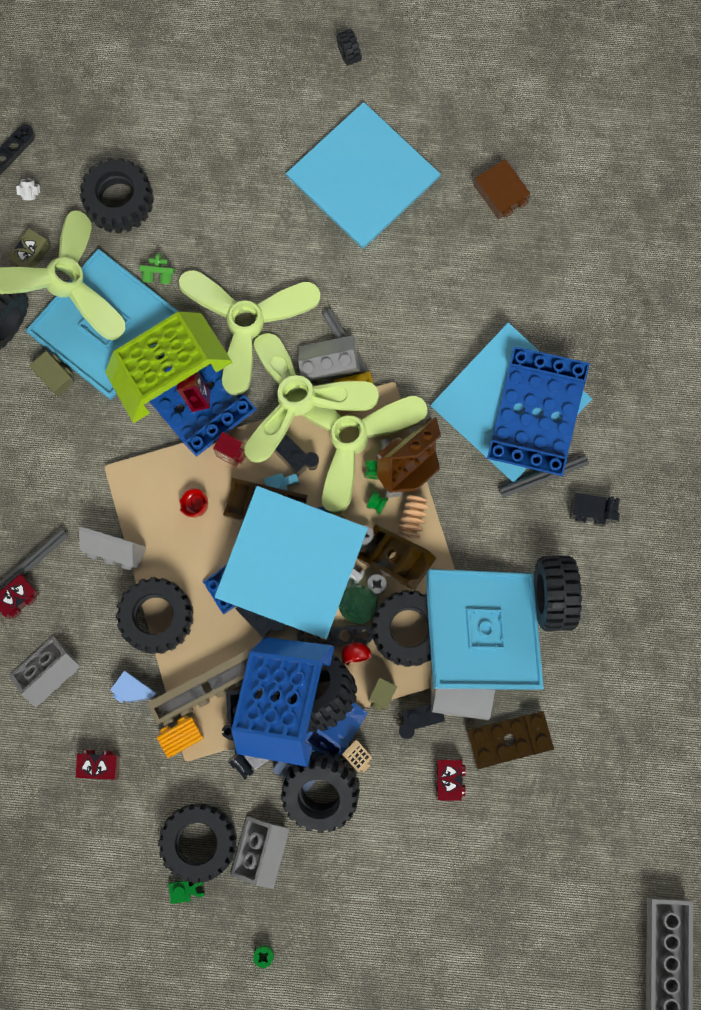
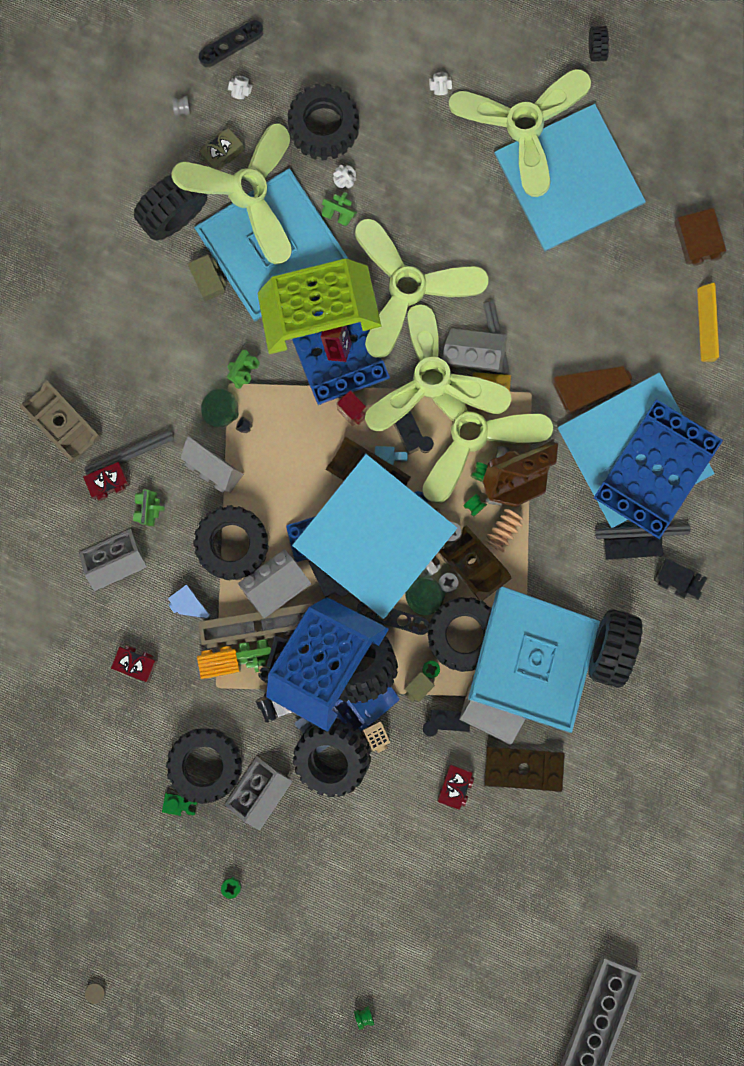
camera: 20 degrees right, 5 degrees up
(65, 609) = (150, 508): none -> bright green hips
(103, 491) = (219, 408): none -> clear green tile
(112, 450) = (241, 369): none -> bright green hips
(131, 500) = (243, 425): none -> black hinge
(153, 239) = (344, 176): none -> white gear
(193, 503) = (301, 448): red hair -> none
(209, 641) = (274, 583): none -> light grey slope
(213, 719) = (255, 657): none -> bright green hips
(215, 128) = (440, 83): none -> white gear
(322, 166) = (554, 100): none -> yellowish green piece
(355, 653) = (407, 640): red hair -> none
(388, 667) = (436, 672): none -> green bush
(444, 360) = (588, 387): none -> reddish brown slope
(536, 264) = (708, 323): none -> yellow slope
(540, 494) = (633, 548): none -> black plate

